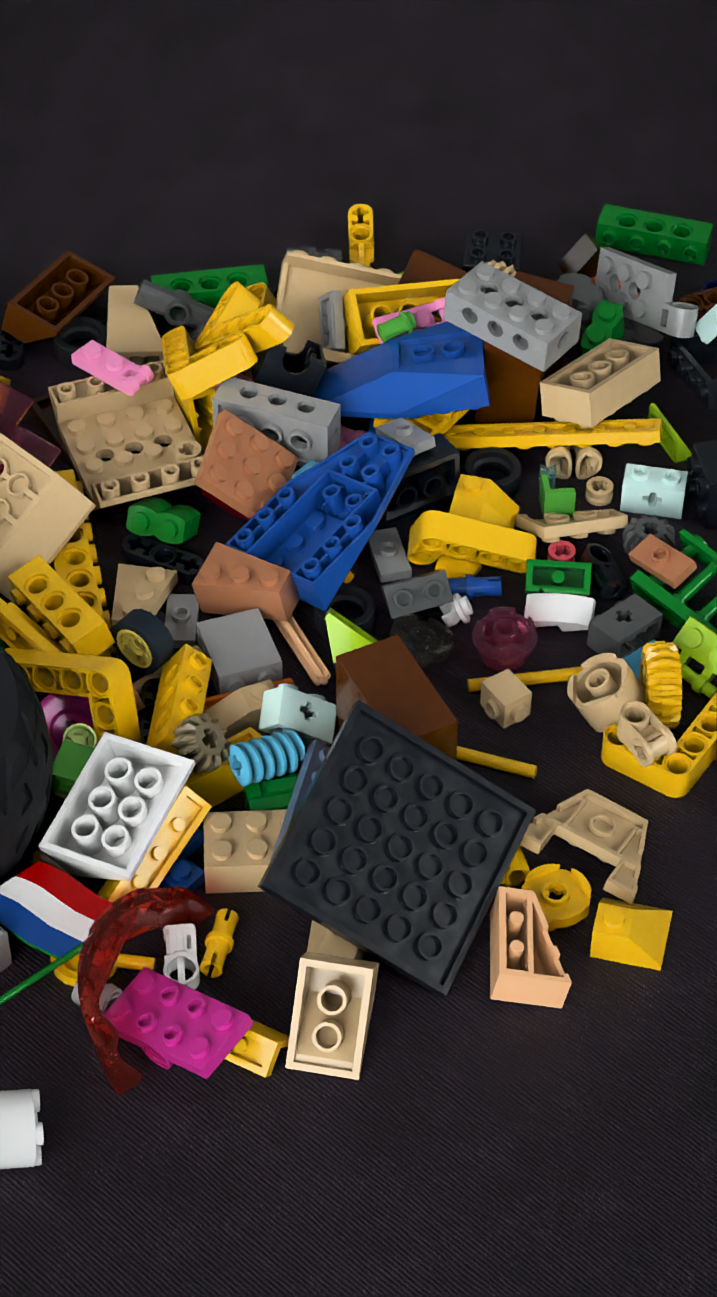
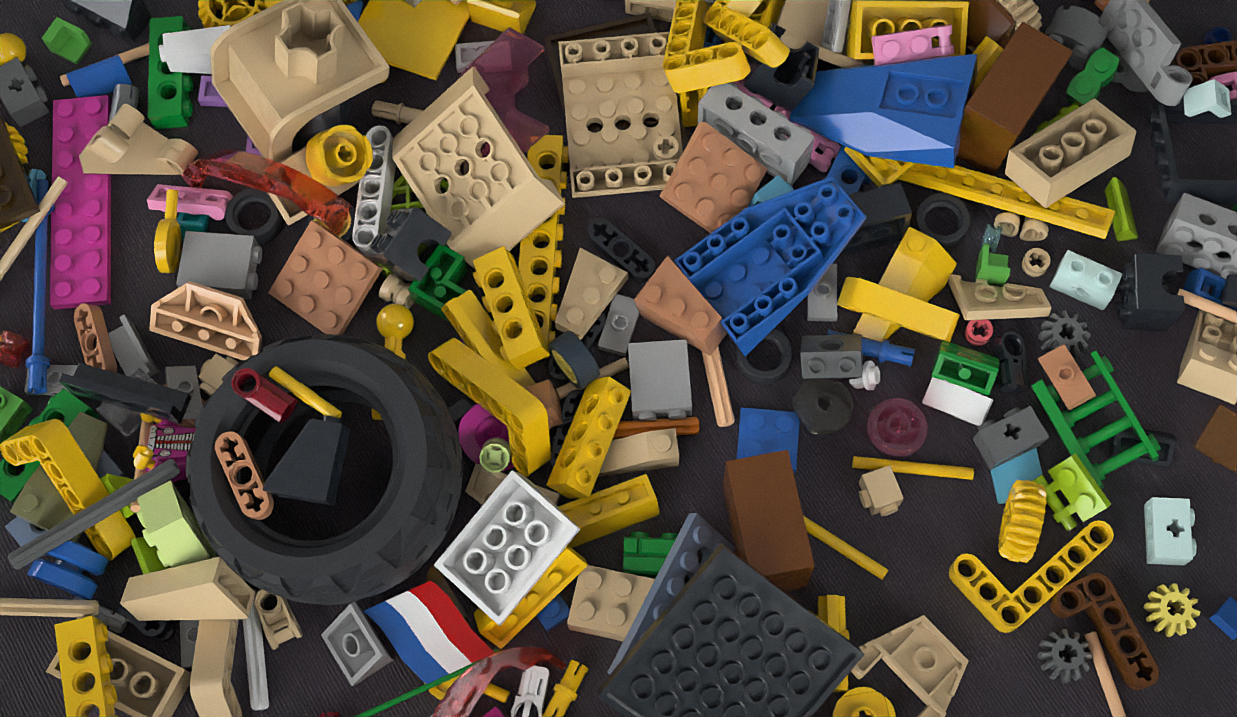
camera: 20 degrees right, 25 degrees up
(68, 765) = (481, 484): bright green panel -> none
(112, 368) = (618, 37): bright pink plate -> none
(164, 521) = (631, 212): green brick -> none
(201, 741) = (592, 500): dark tan gear -> none
(266, 757) = (647, 518): medium azure piece -> none
(302, 712) = (688, 477): light aqua brick -> none
(344, 634) = (759, 394): lime slope -> none
(394, 327) = (891, 54): bright green pin -> none
(407, 434) = (866, 183): light grey plate -> none
(512, 316) = (999, 89): light grey brick -> none
(603, 689) = (971, 516): tan brick -> none
(644, 733) = (989, 584): tan piece -> none

